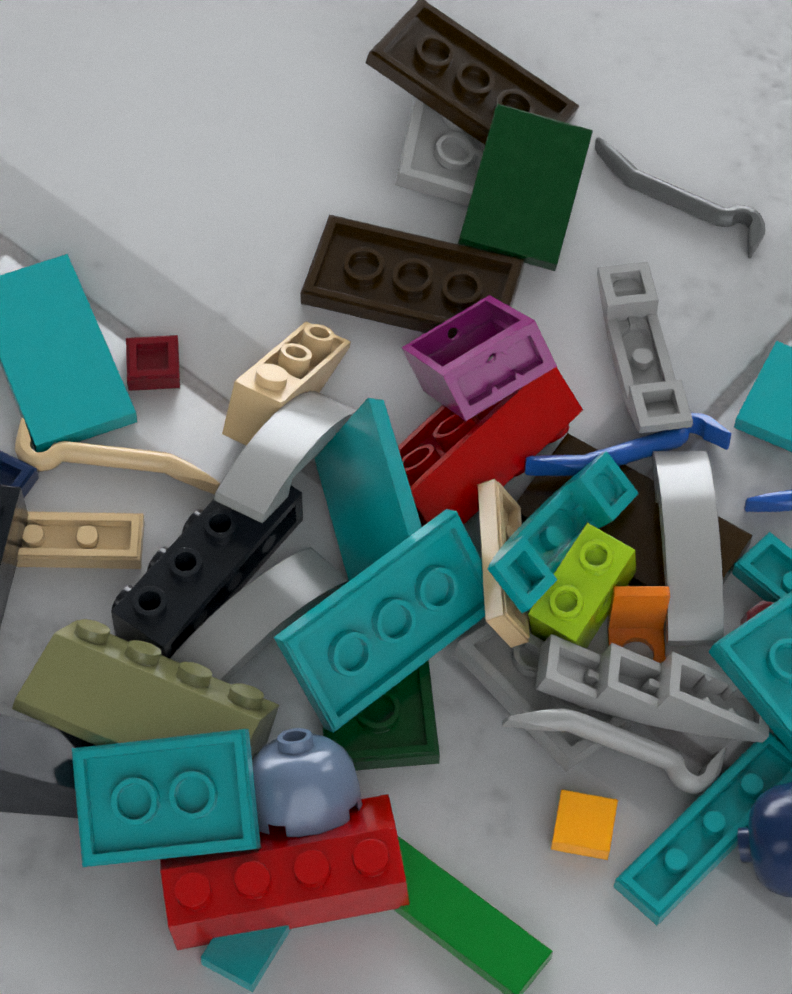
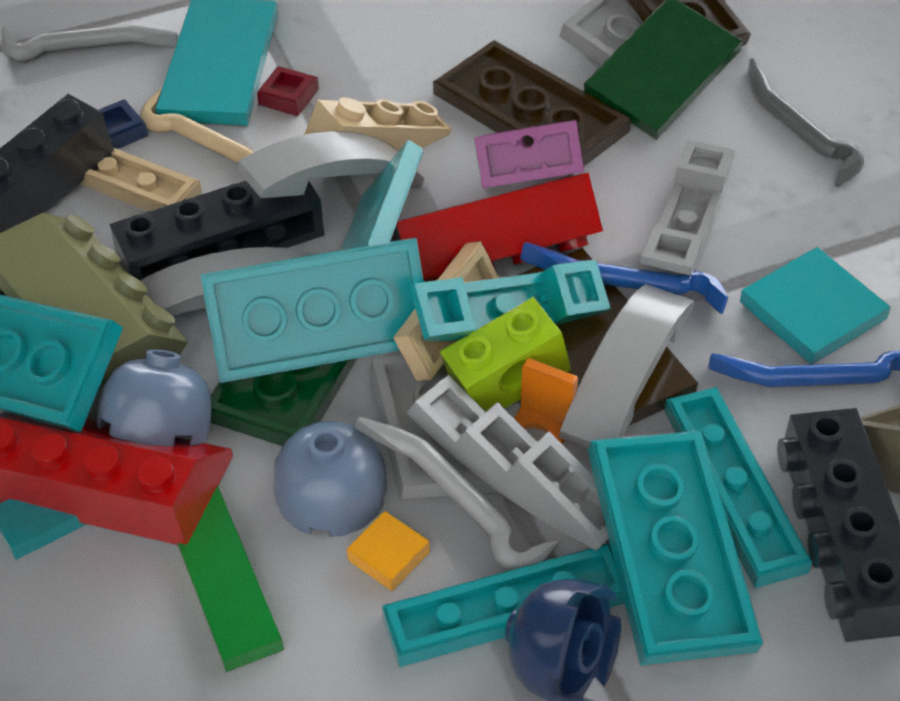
camera: 30 degrees right, 10 degrees down
(491, 781) = (329, 479): none -> sand blue cylinder

